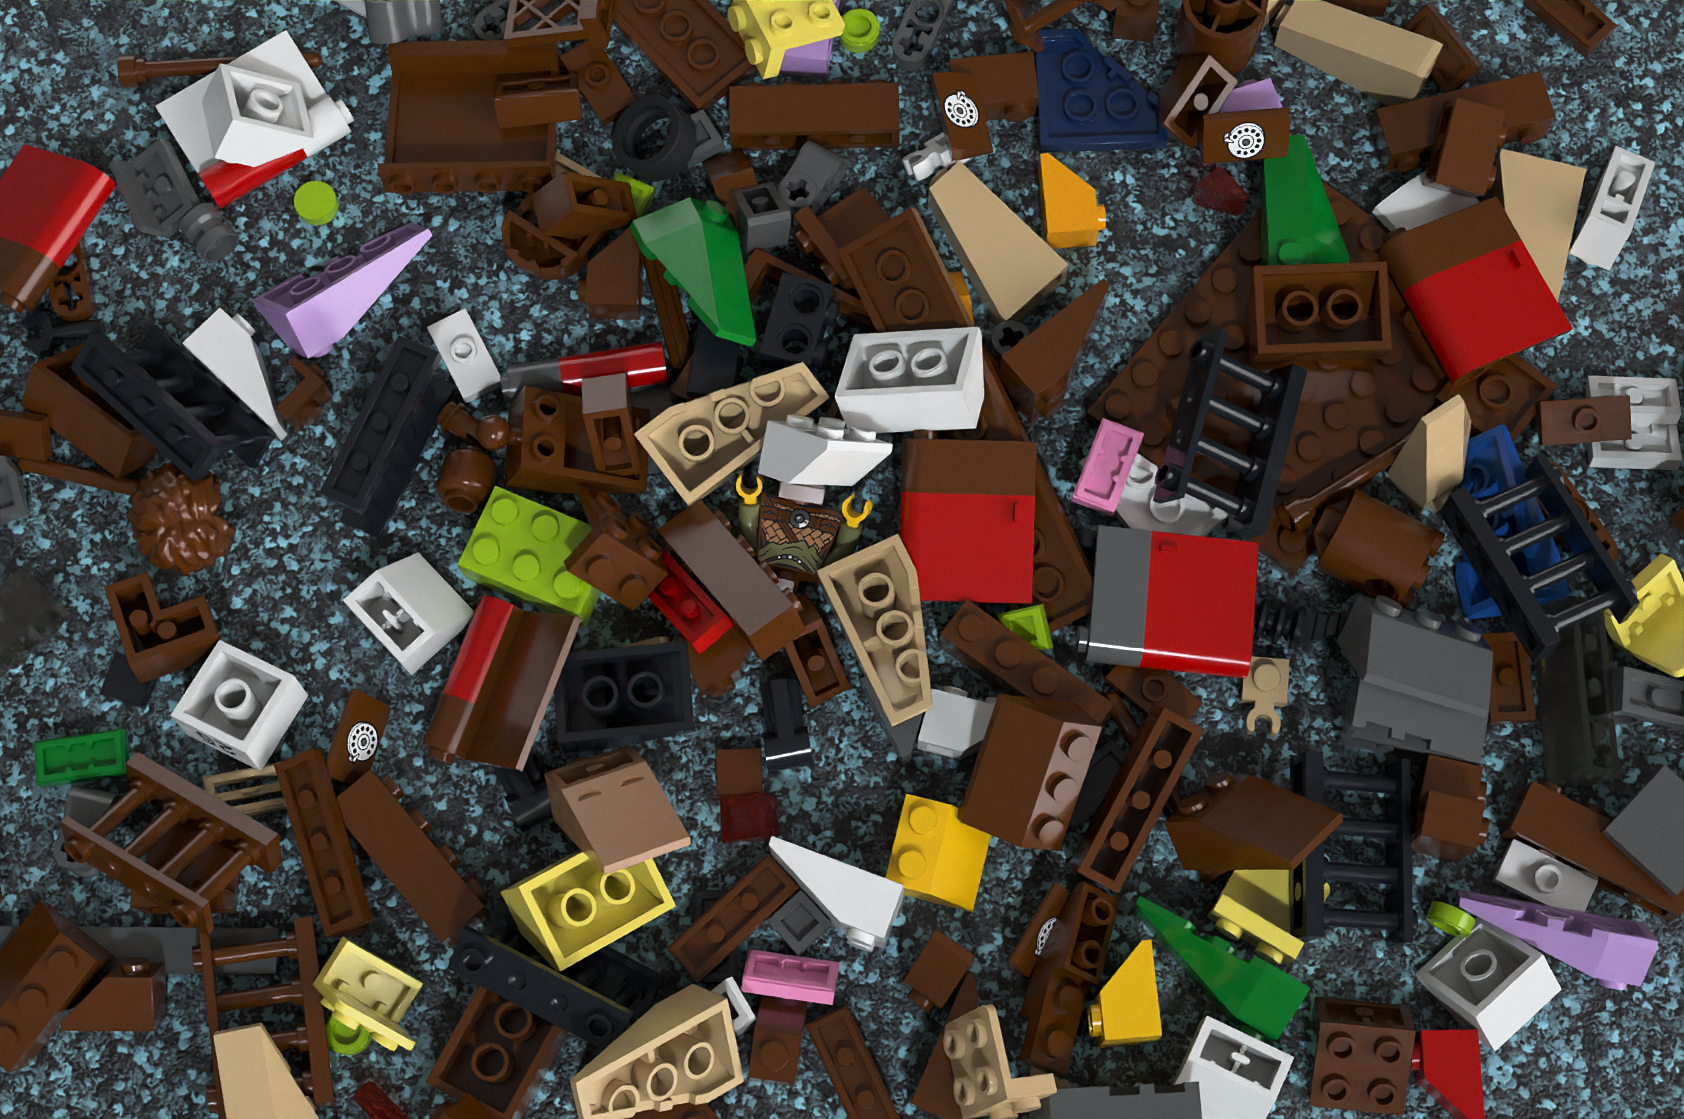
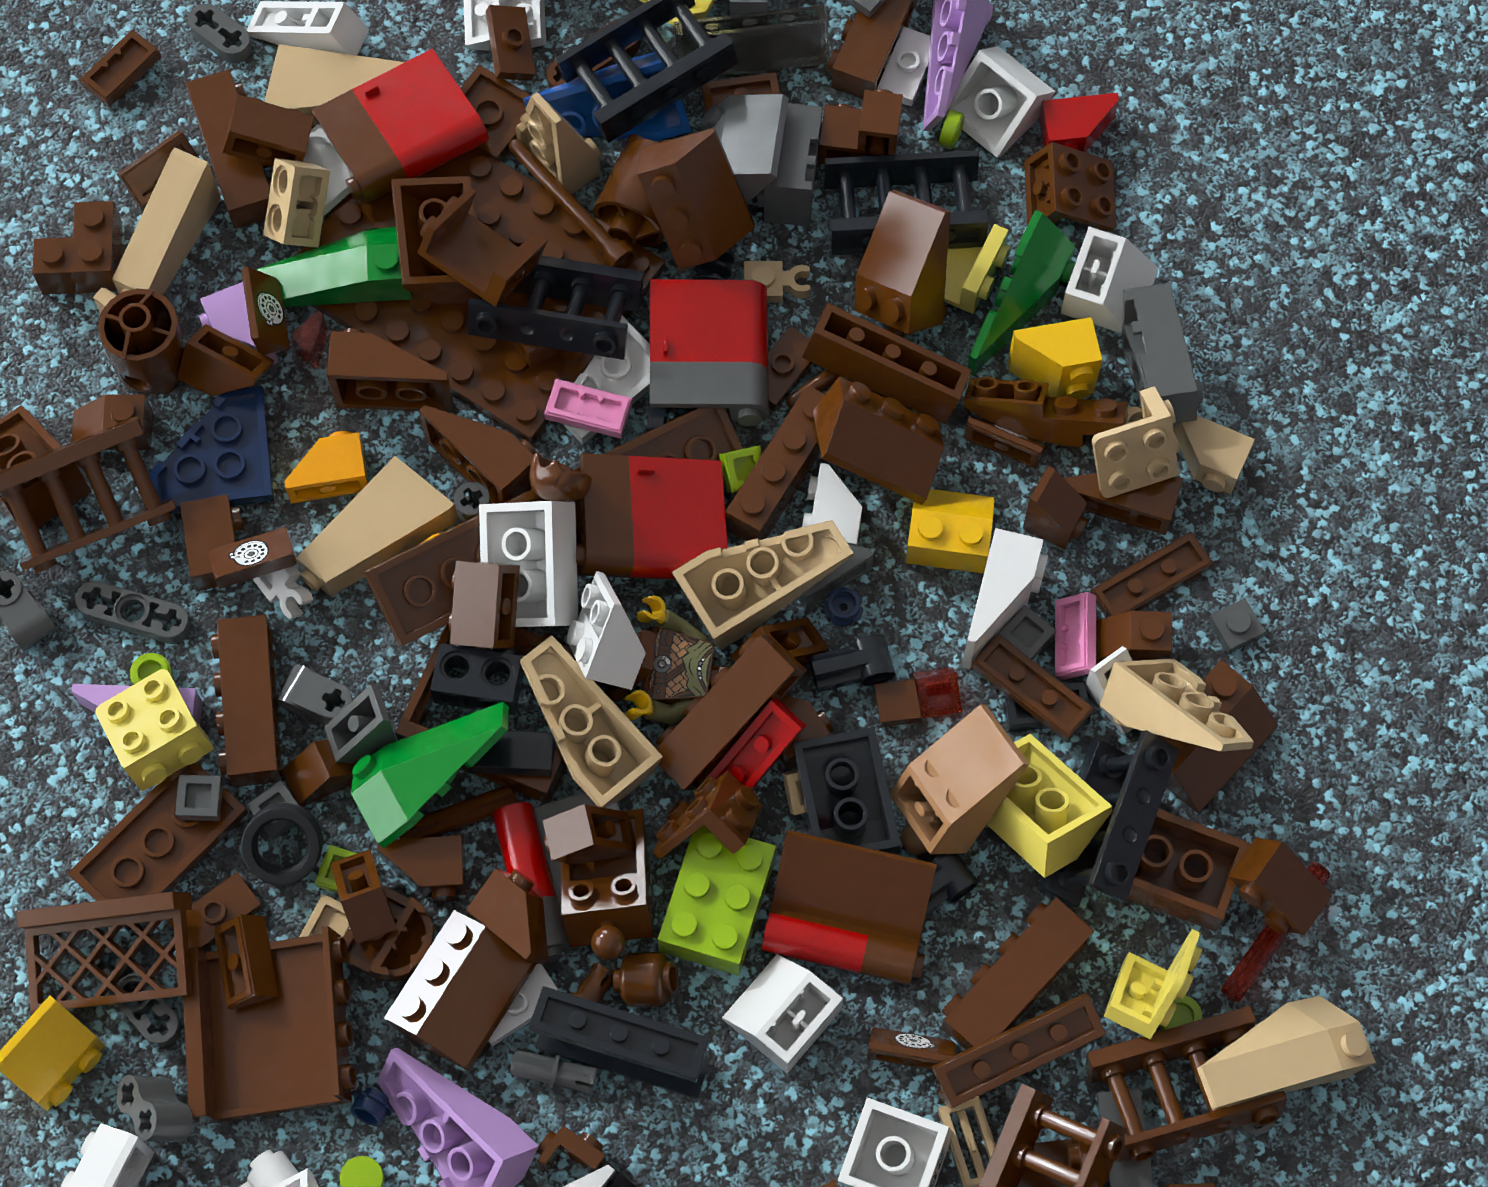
camera: 100 degrees left, 5 degrees down
(382, 212) = (370, 1106): none -> dark blue plate
(477, 296) = (460, 991): none -> reddish brown slope
(537, 345) = (513, 913): none -> reddish brown slope
(708, 60) = (199, 797): none -> dark grey plate
(834, 229) = (370, 655): reddish brown bracket -> none
(856, 714) = (850, 599): none -> dark blue plate
(867, 328) = (484, 604): none -> brick
(1000, 408) = (557, 481): none -> reddish brown hair
(1172, 236) = (381, 376): none -> reddish brown slope
(1285, 342) = (477, 253): none -> reddish brown panel
(1343, 585) = (694, 197): none -> reddish brown slope
(1377, 175) = (296, 203): none -> tan brick
(1606, 112) = (224, 27): none -> dark grey beam

